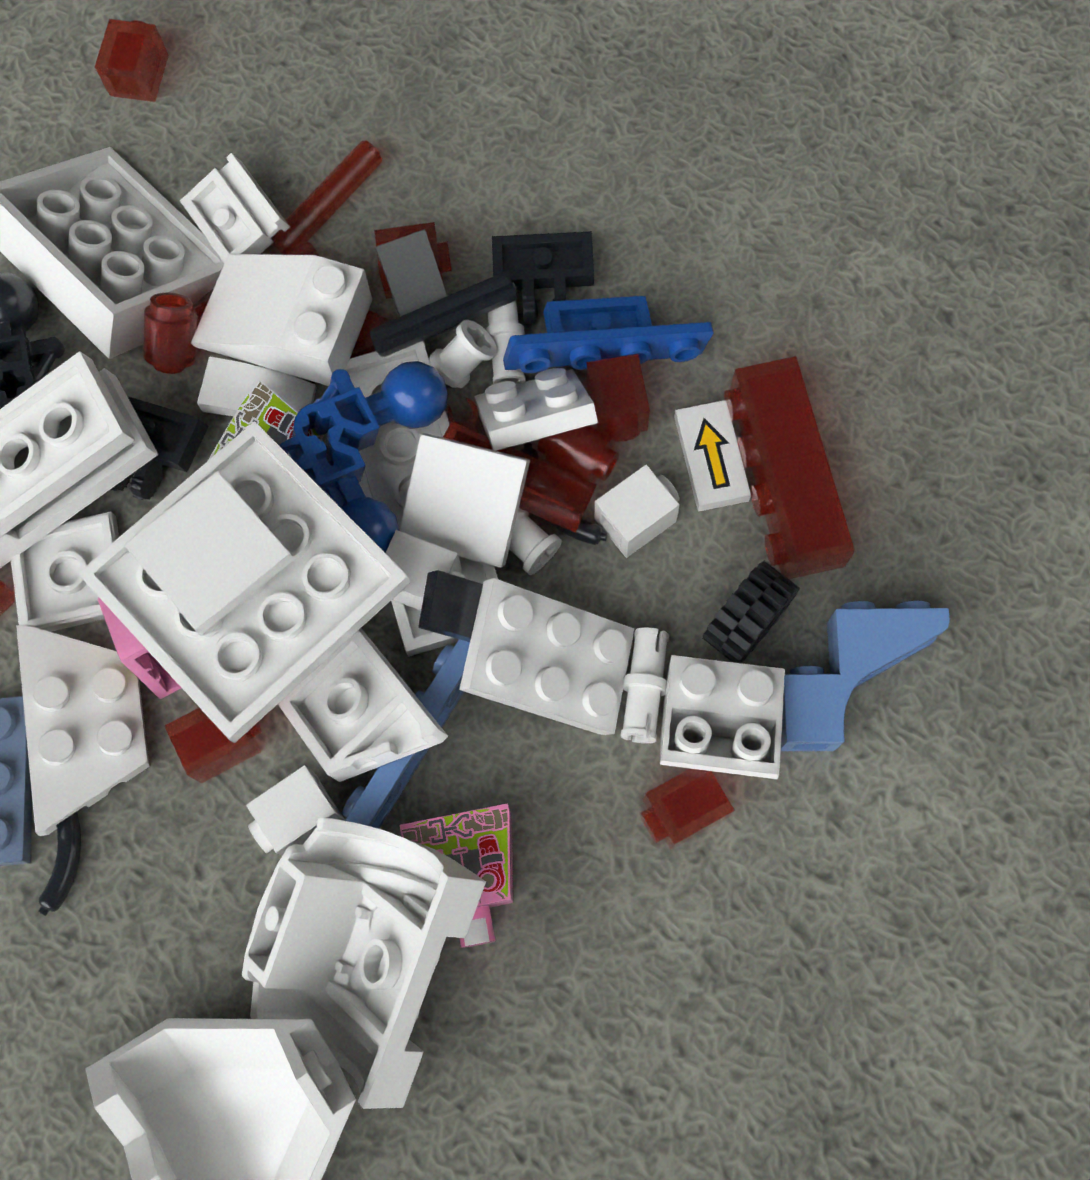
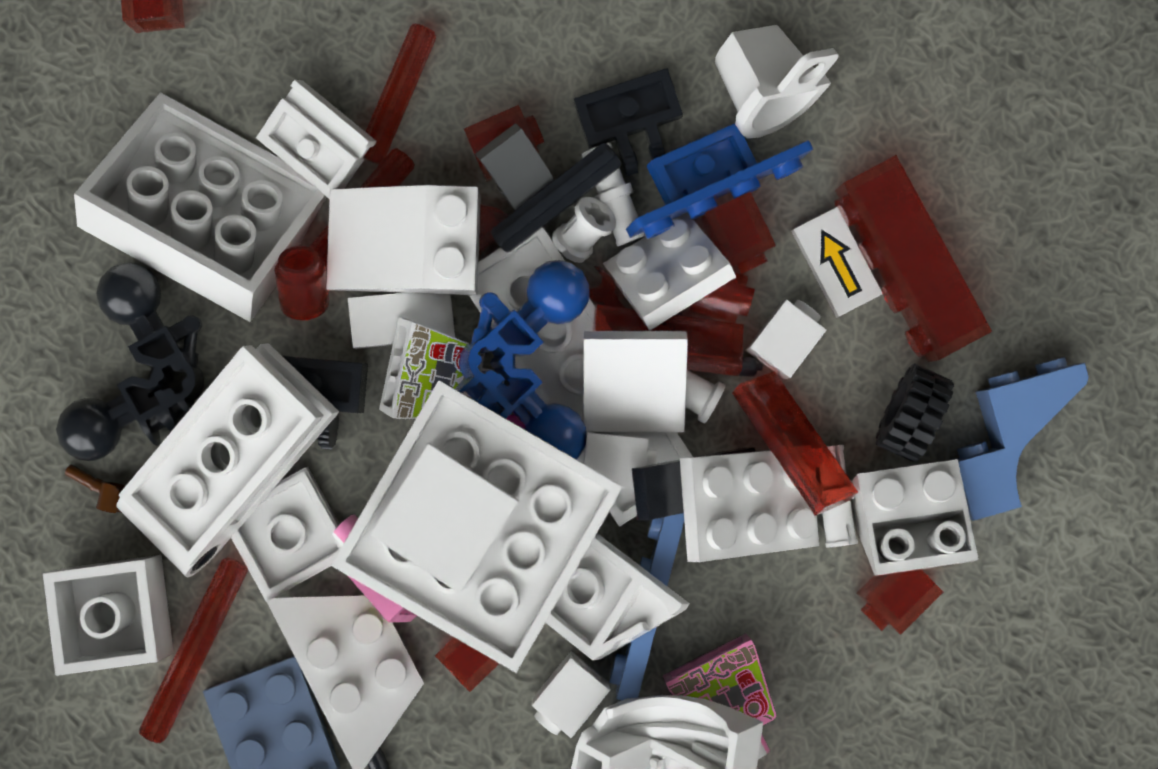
camera: 20 degrees left, 15 degrees up
(615, 612) = (795, 443): none -> clear red tile
(689, 263) = (770, 78): none -> white container

